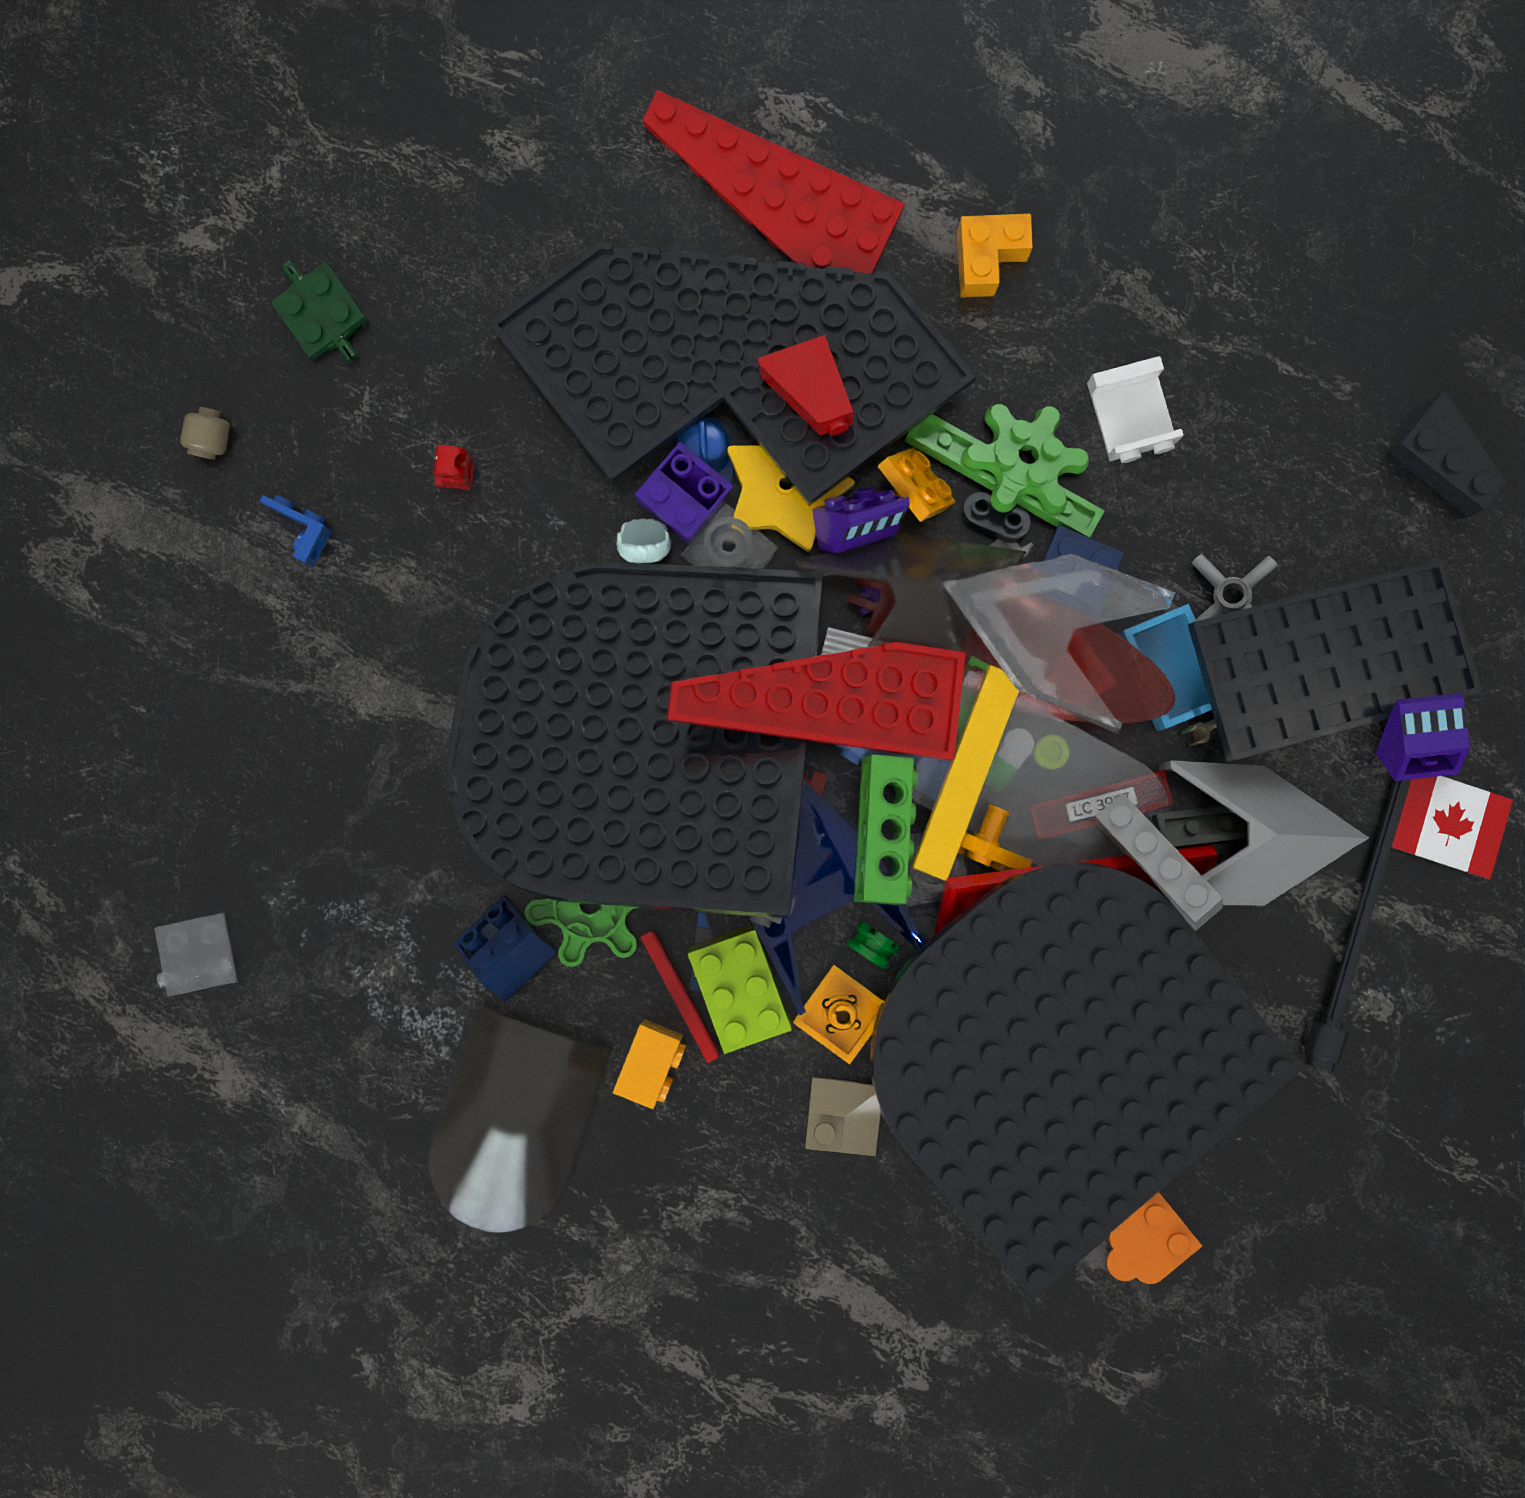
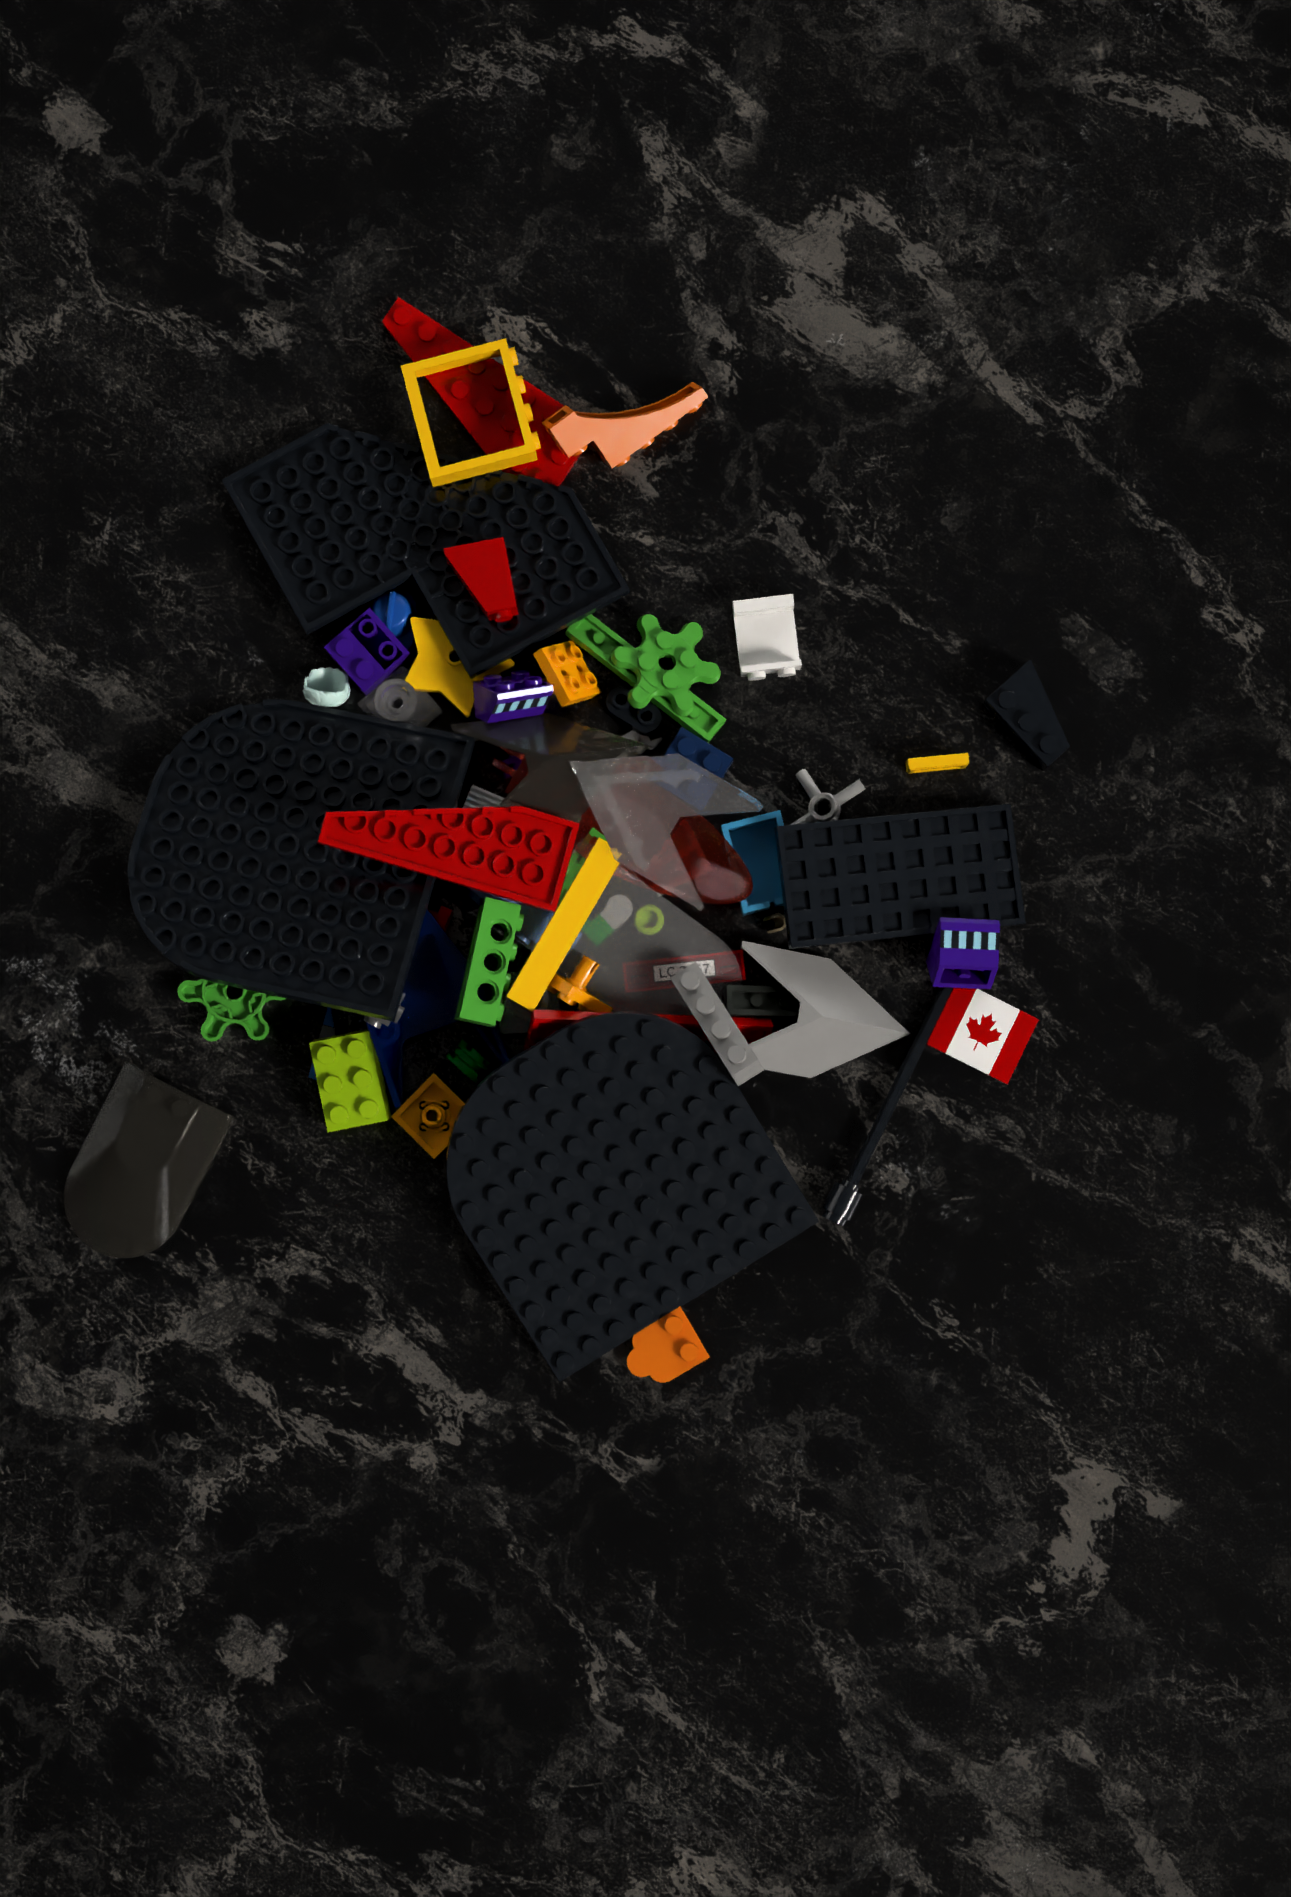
camera: 10 degrees right, 0 degrees up
(308, 543) = (39, 647): blue bracket -> none
(319, 311) = (78, 447): dark green plate -> none
(453, 467) = (173, 600): red leg -> none
(504, 948) = (155, 1017): dark blue slope -> none
(648, 1064) = (264, 1131): light orange brick -> none
(680, 996) = (299, 1079): red tile -> none
(787, 258) = (486, 463): none -> yellow window
(842, 1117) = (421, 1204): dark tan plate -> none
(933, 205) = (623, 432): none -> orange arch
(985, 244) = (661, 472): light orange brick -> none
(1352, 525) = (937, 763): none -> yellow tile

